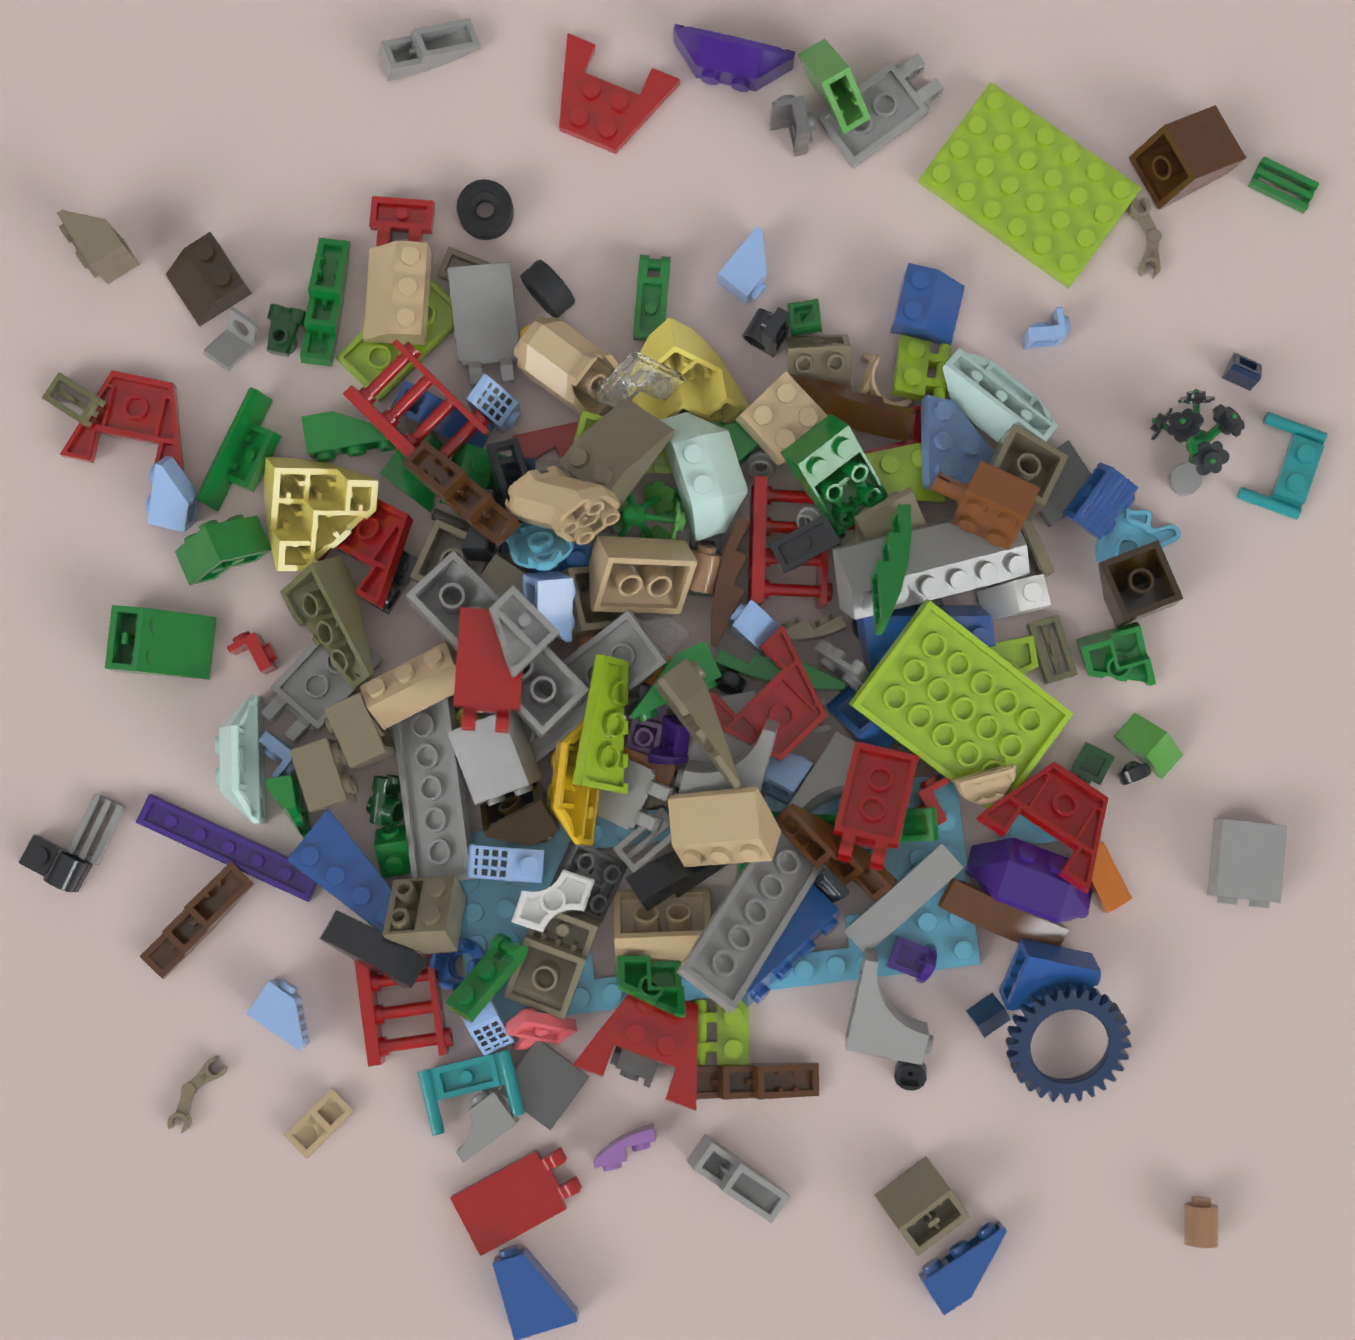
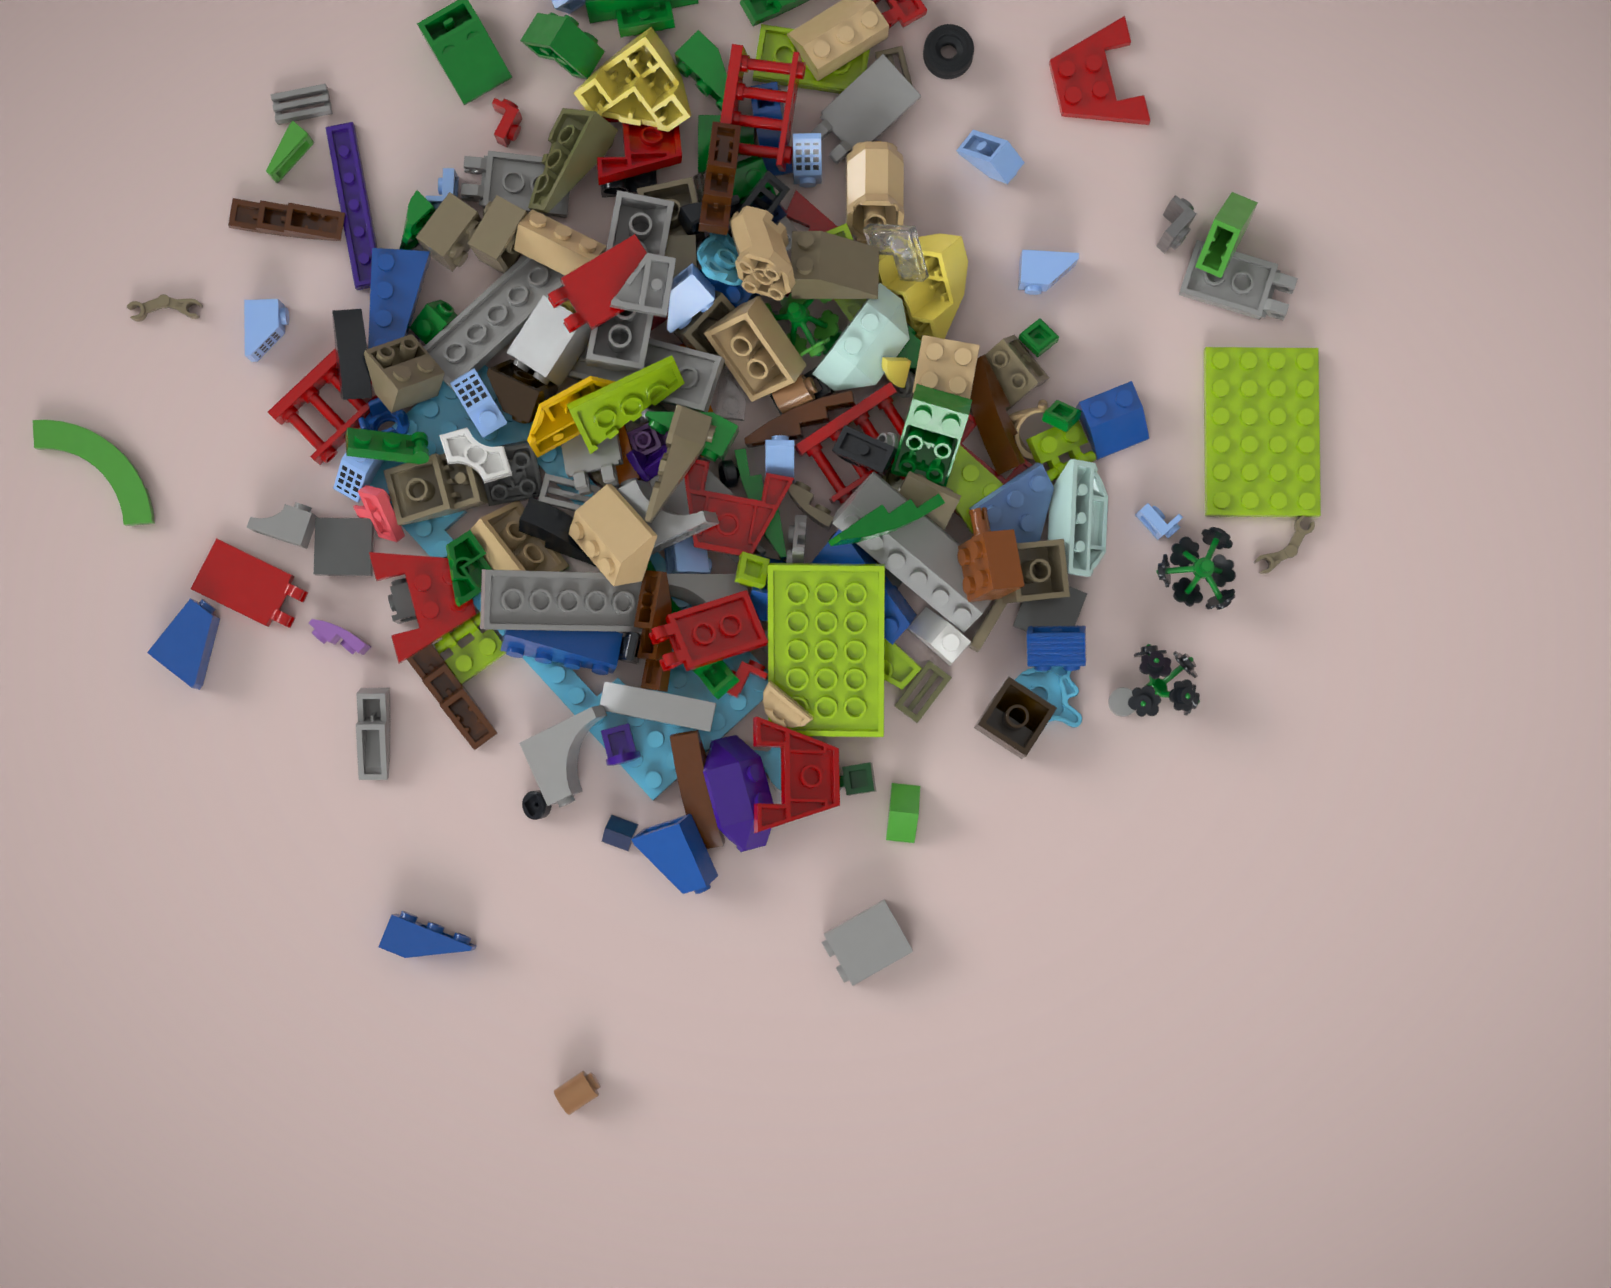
camera: 55 degrees right, 0 degrees up
(55, 864) = (255, 95): black plate -> none
(133, 868) = (289, 152): none -> bright green slope
(242, 760) = (422, 168): light aqua wedge -> none
(296, 1250) = (107, 458): none -> bright green tile
(319, 1123) = (204, 409): tan slope -> none
(384, 805) = (463, 290): dark green plate -> none
(468, 1077) = (309, 488): teal plate -> none
(547, 288) = (920, 136): black tyre -> none
(609, 240) = (991, 156): none -> light blue slope
(651, 296) = (973, 215): green plate -> none
(731, 59) = (1192, 148): dark purple wedge -> none
(748, 462) = (896, 370): none -> light yellow tile
(768, 330) = (1007, 317): black plate -> none
(841, 723) = (752, 570): none -> lime tile
(894, 347) = (1061, 416): none -> green tile
(922, 1206) = (446, 878): dark tan slope -> none
(1021, 1036) = (628, 859): dark blue piece -> none
(1107, 882) = (781, 848): orange slope -> none
(1117, 654) = (954, 742): green slope -> none
(1126, 315) = (1214, 571): none -> black plant
(1133, 772) = (873, 813): black tile -> none
(1186, 156) = (1369, 531): reddish brown slope -> none
(1243, 371) = (1236, 687): dark blue slope -> none
(1288, 174) = (1413, 618): green tile -> none
(1296, 469) = (1188, 779): teal plate -> none

